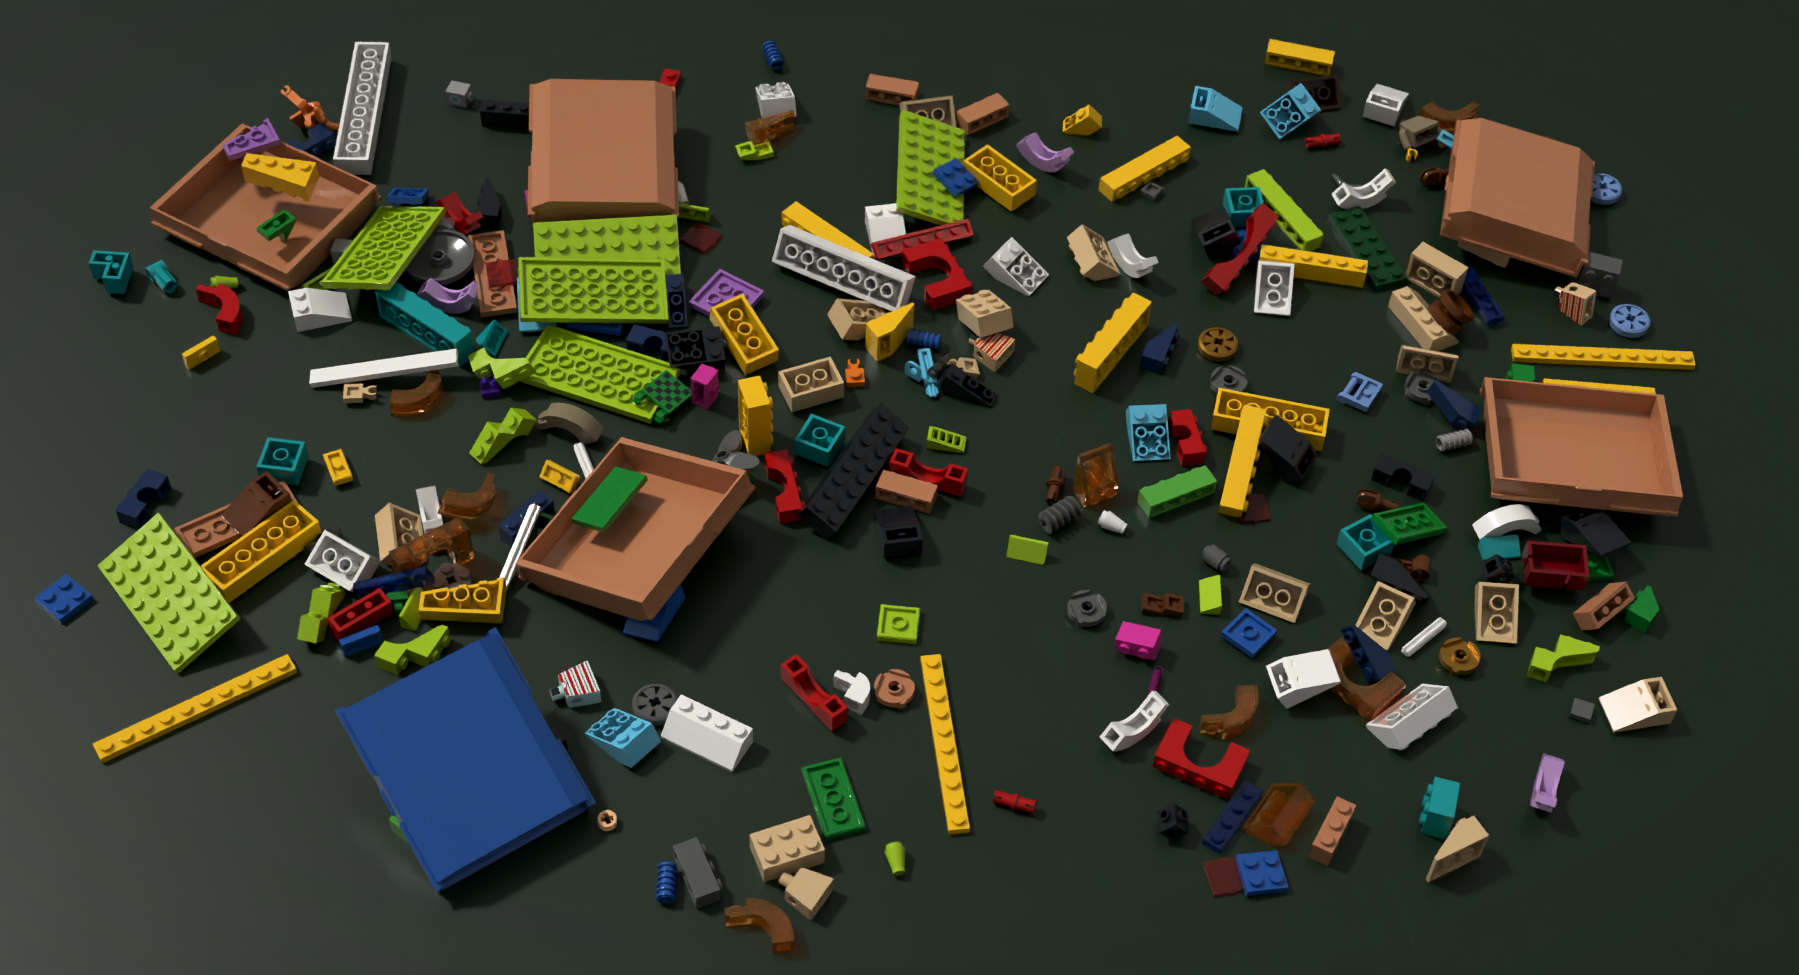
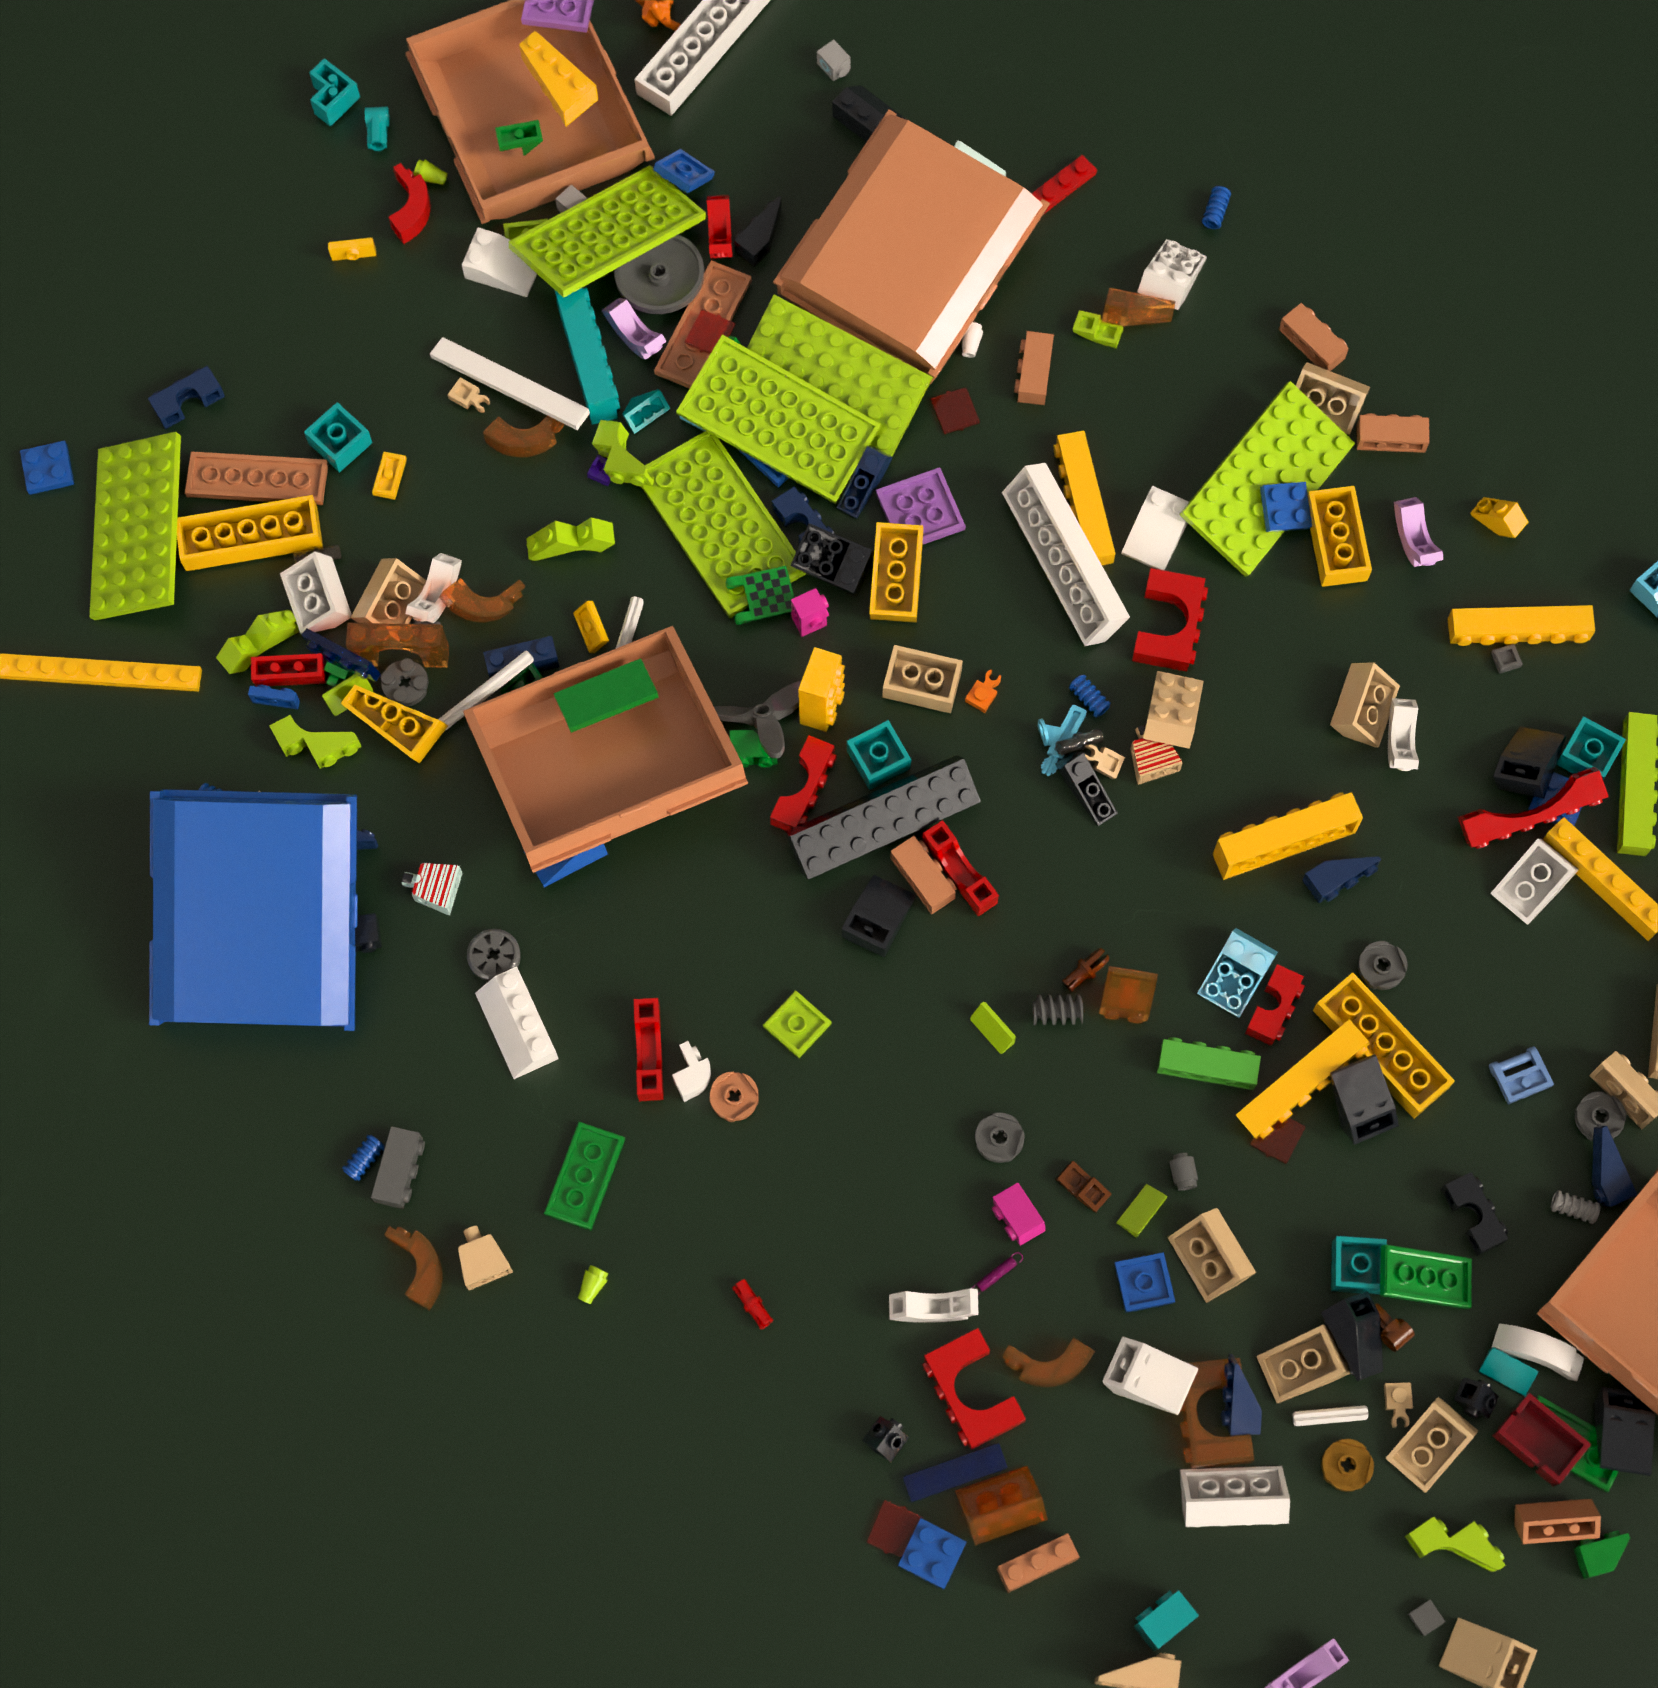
camera: 40 degrees right, 20 degrees up
(256, 503) = (275, 477): reddish brown slope -> none
(320, 141) = (646, 42): dark blue arch -> none
(573, 419) = (646, 569): dark tan arch -> none
(611, 816) = (353, 1055): light nougat bush -> none
(624, 736) = (437, 971): medium azure slope -> none
(694, 212) = (969, 372): lime slope -> none
(733, 188) = (1034, 367): none -> nougat brick
(787, 848) = (496, 1201): tan brick -> none
(851, 317) = (1039, 627): tan slope -> none
(888, 332) = (1052, 667): yellow slope -> none
(936, 434) = (1001, 836): lime slope -> none
(944, 745) = (737, 1190): yellow plate -> none
(948, 233) = (1214, 571): red plate -> none
(1016, 268) = (1263, 668): white slope -> none
(1111, 522) = (1108, 1054): white cone -> none
(1218, 344) = (1422, 901): pearl gold wheel -> none
(1374, 501) = (1417, 1221): reddish brown arm -> none
(1454, 603) = (1398, 1398): none -> tan plate

